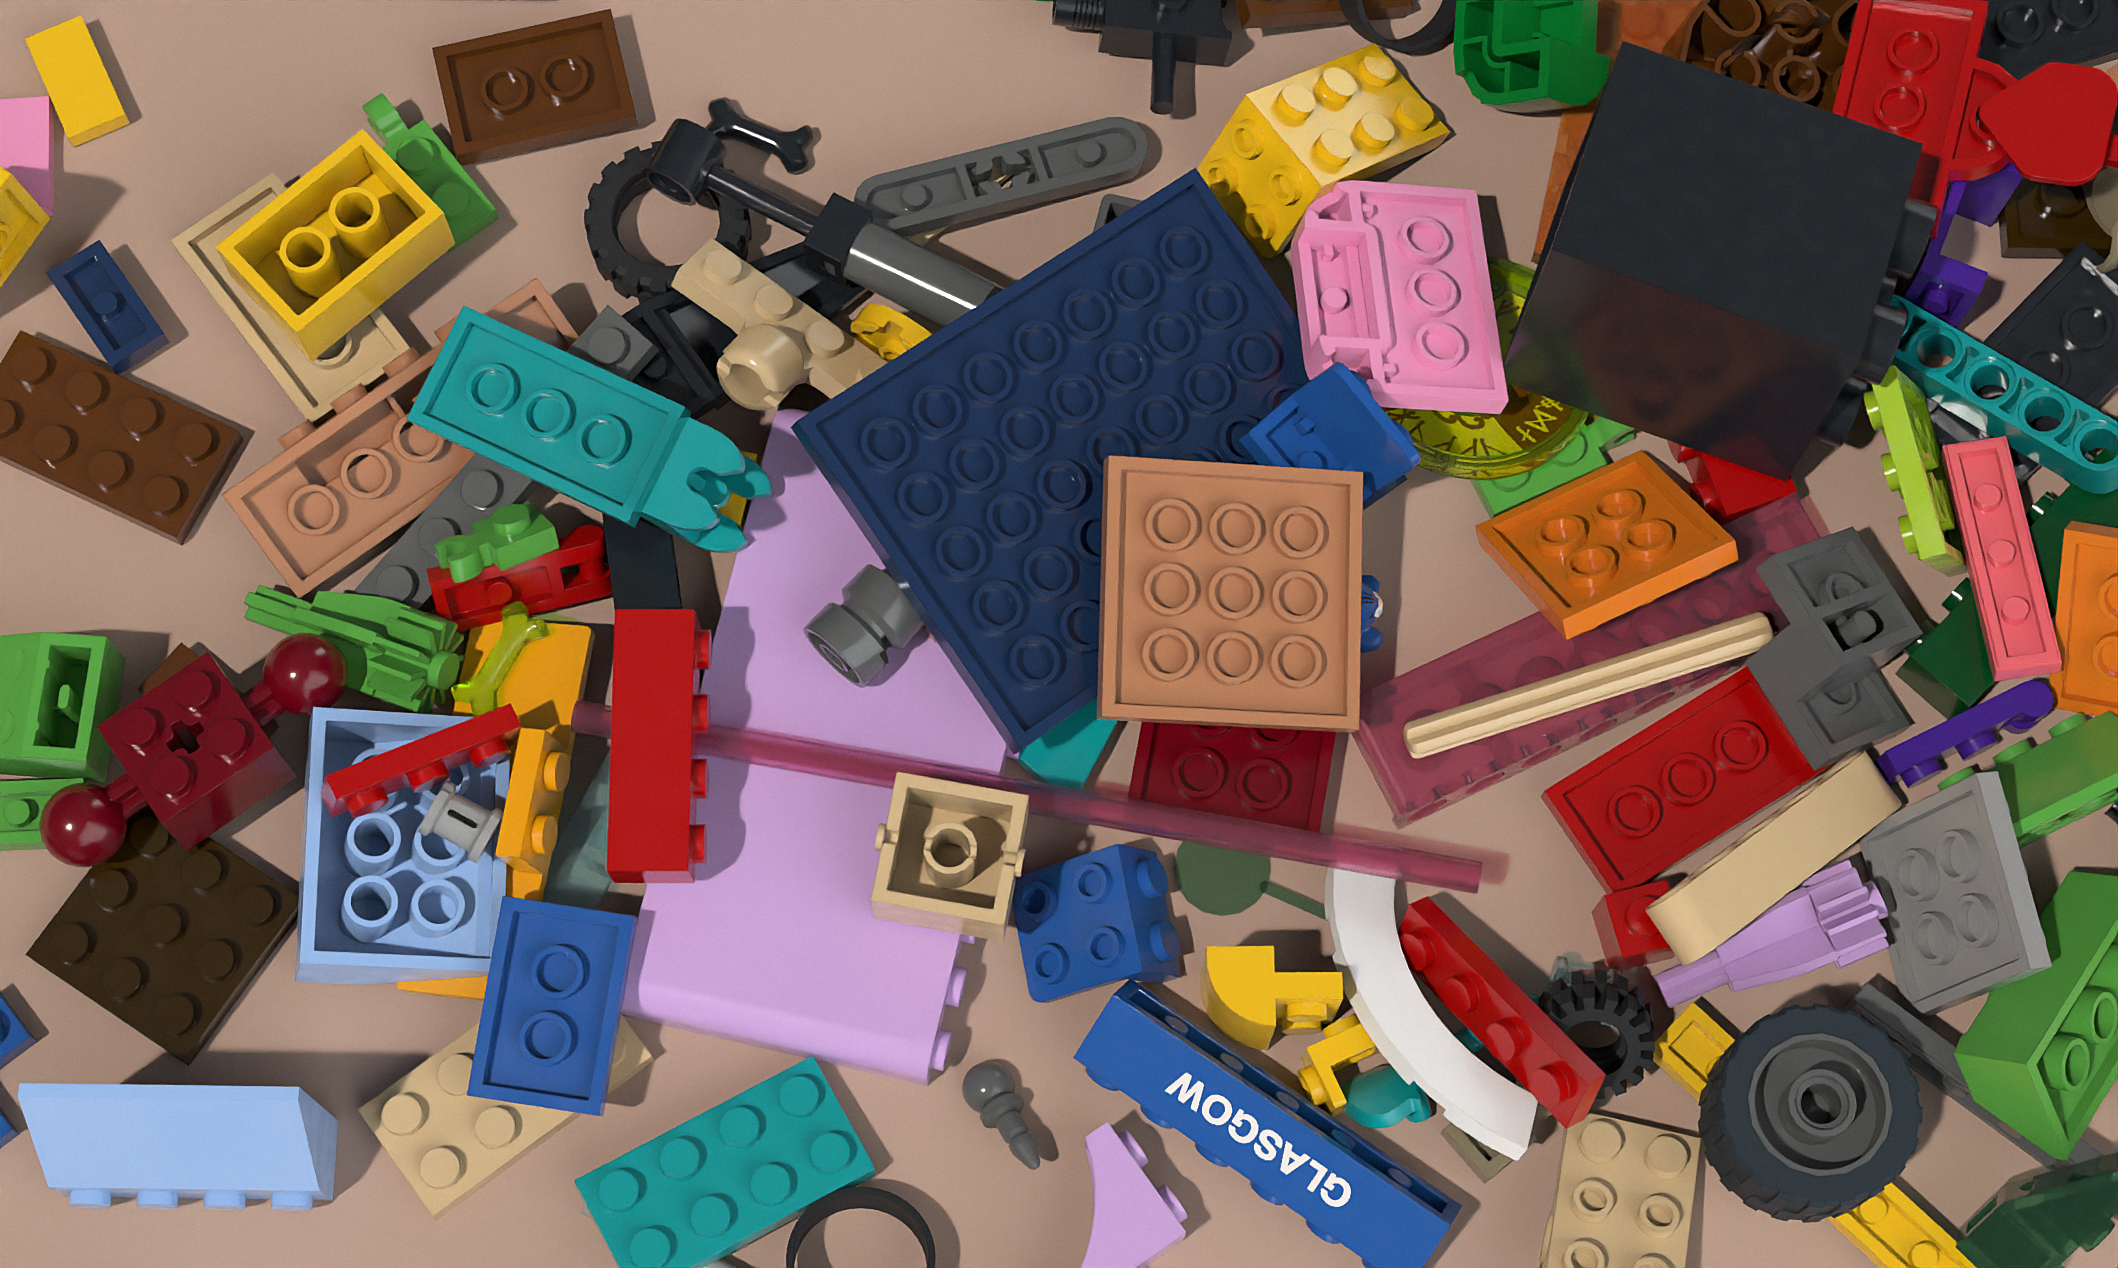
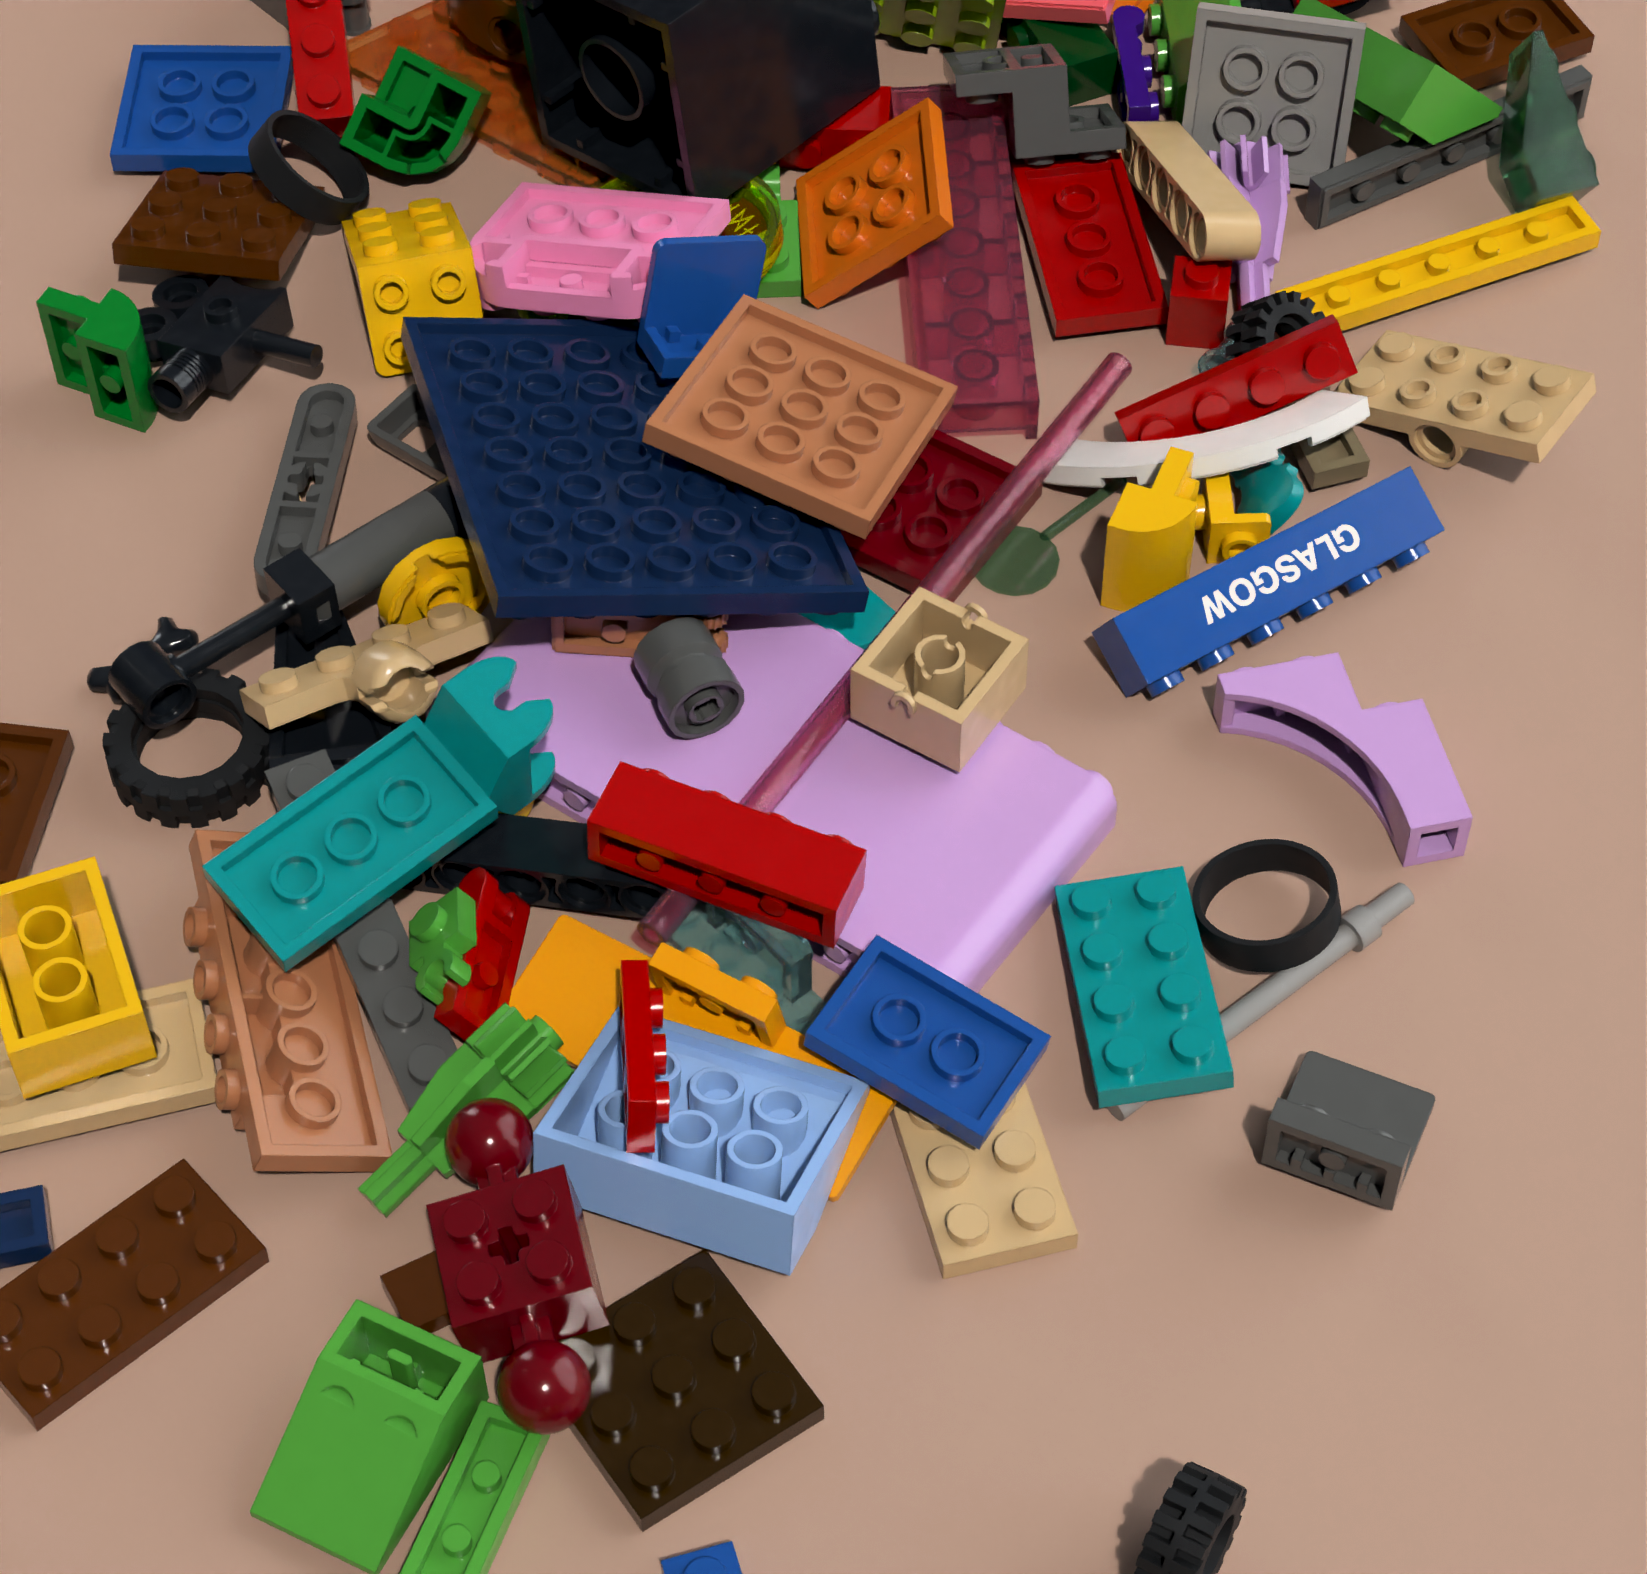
camera: 65 degrees left, 20 degrees down
(182, 1144) = (923, 1395): light blue slope -> none
(470, 839) = (713, 1047): light grey bush -> none
(516, 633) = (535, 975): clear neon green piece -> none
(990, 1091) = (1142, 776): dark grey bar -> none
(1095, 923) = (1059, 642): blue bracket -> none
(1587, 685) = (989, 250): tan axle -> none
(1810, 1113) = (1407, 229): wheel -> none

